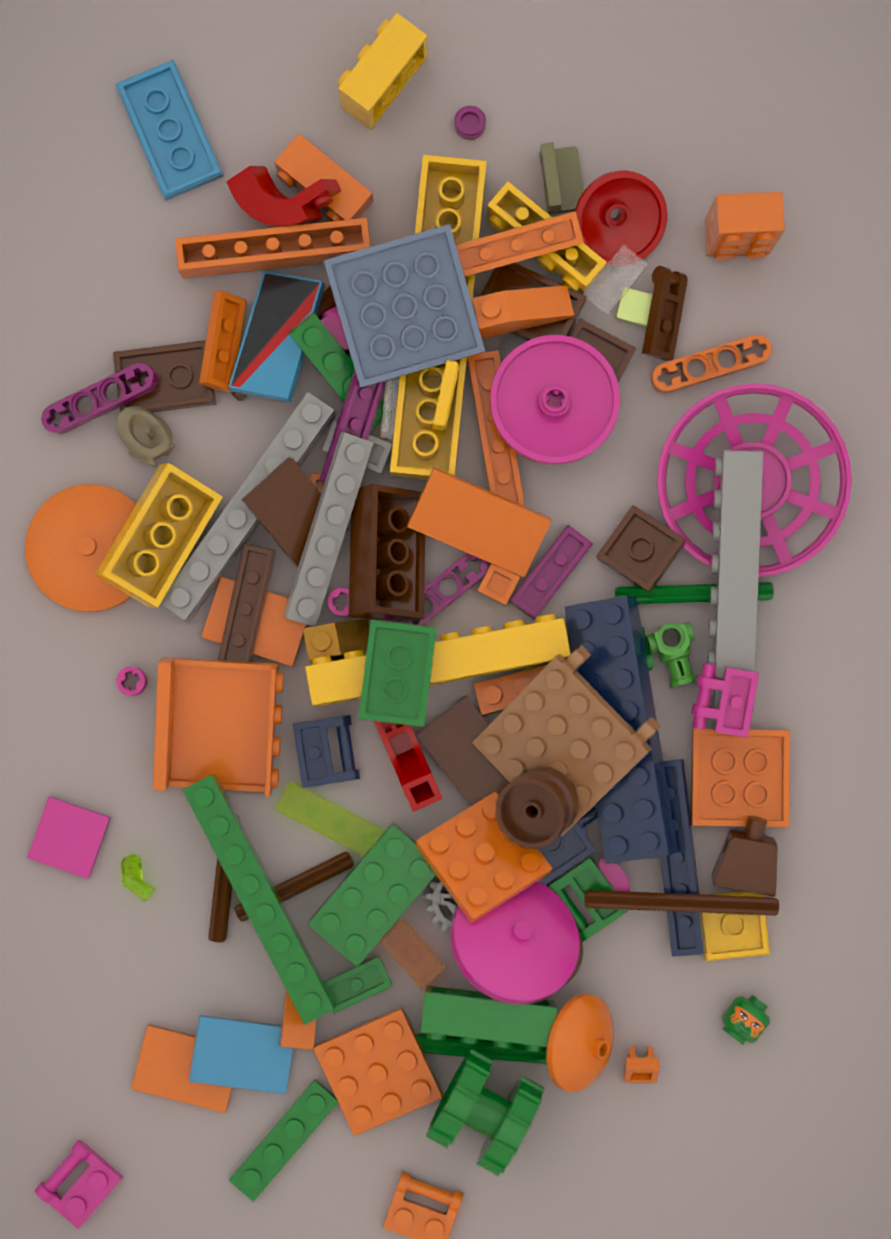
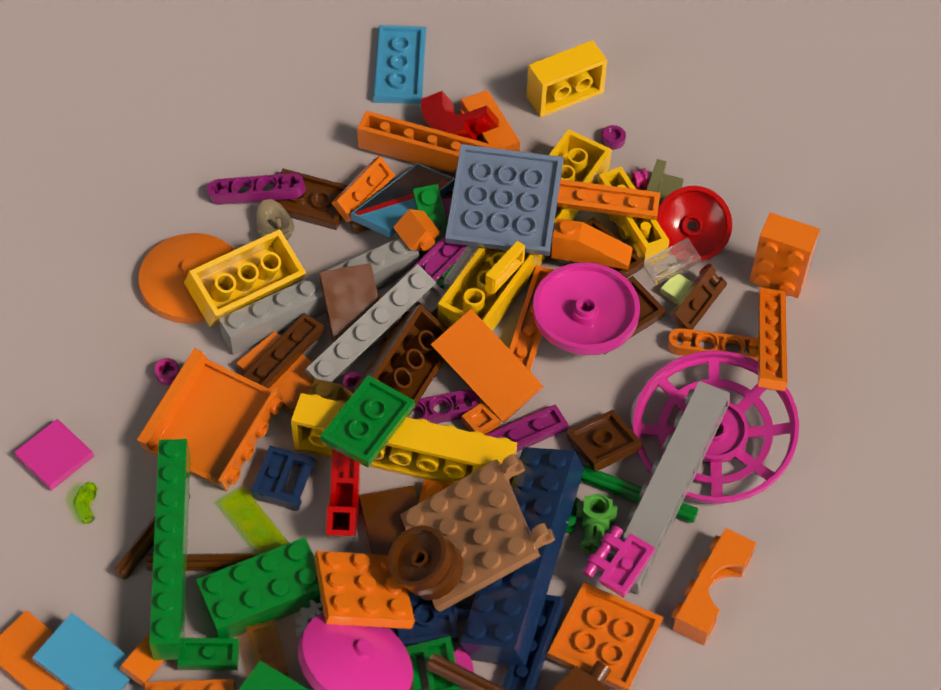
camera: 25 degrees right, 30 degrees down
(321, 386) = (417, 230): none -> orange brick
(529, 175) = (640, 179): none -> dark pink bush
(773, 344) = (772, 339): none -> orange plate
(820, 707) = (728, 559): none -> orange arch

